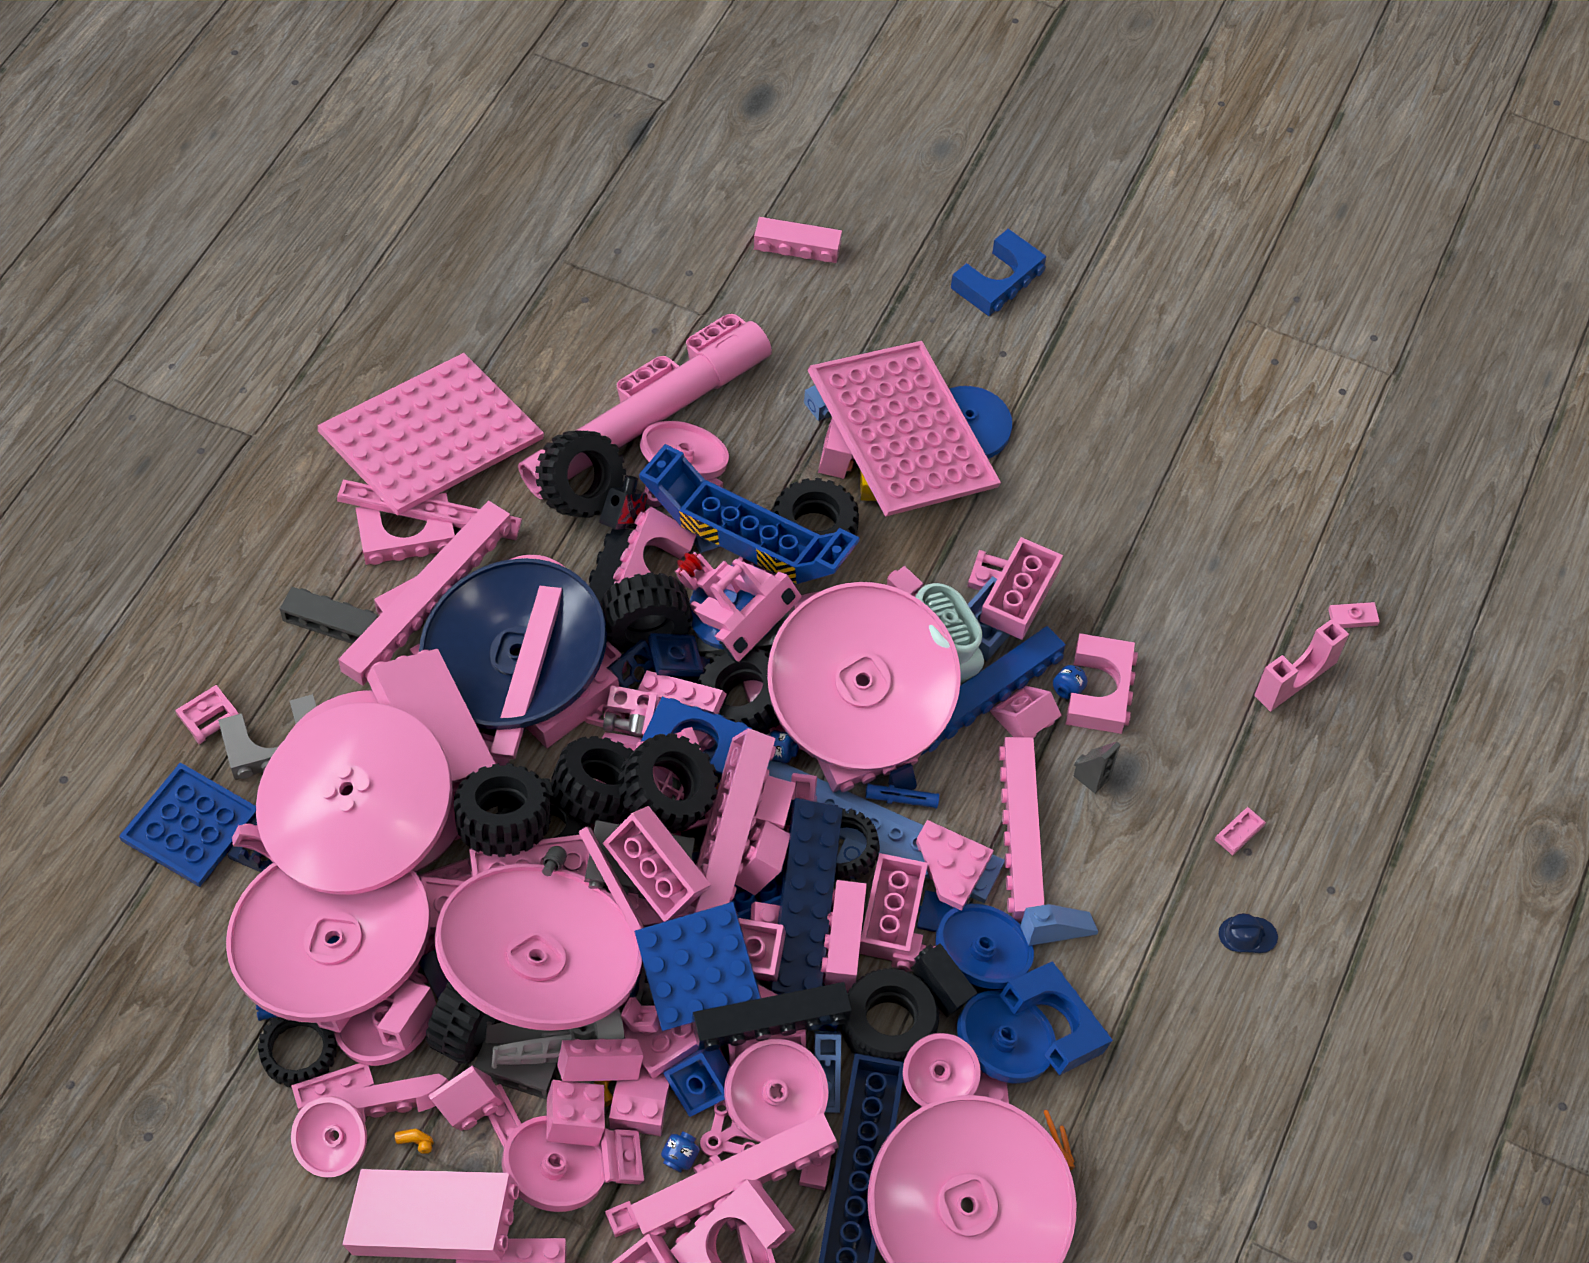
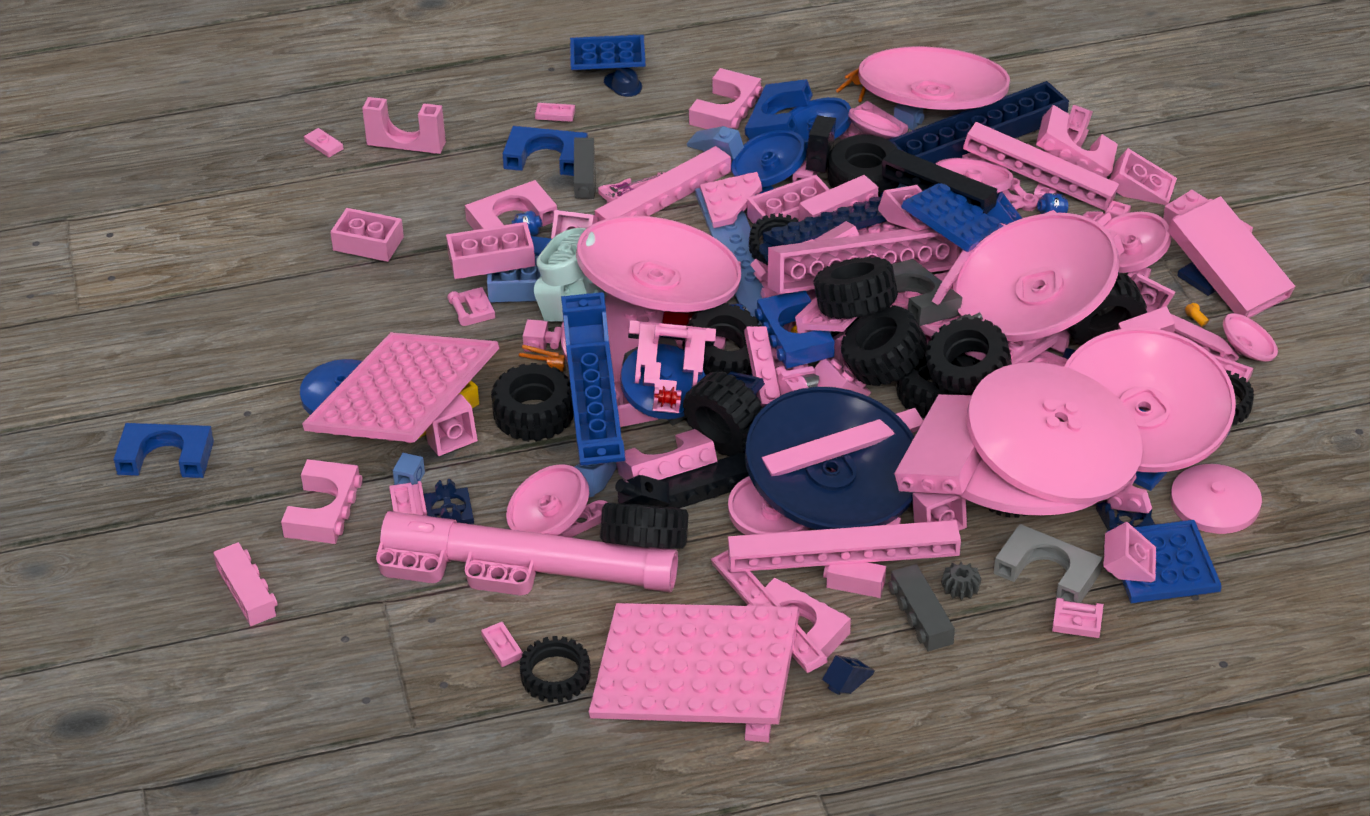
camera: 125 degrees left, 15 degrees down
(194, 934) = (1216, 498): none -> bright pink dish
(209, 785) = (1129, 554): none -> bright pink slope
(323, 522) = (846, 674): none -> dark blue slope
(323, 665) = (961, 580): none -> dark grey gear
(520, 339) = (559, 689): none -> black tyre
(580, 346) = (502, 644): none -> bright pink plate
(656, 863) = (918, 254): bright pink brick -> none
(761, 423) = (445, 493): none -> dark blue piece
(787, 382) = (408, 498): none -> bright pink plate
(823, 309) = (326, 522): none -> bright pink arch
(859, 573) = (552, 358): none -> orange plant
(1055, 786) = (614, 191): none -> bright pink piece
(1126, 1025) = (734, 85): none -> bright pink arch
(1160, 549) = (367, 234): none -> bright pink brick
(1167, 803) = (527, 140): none -> blue arch
(1285, 926) = (607, 52): none -> blue slope

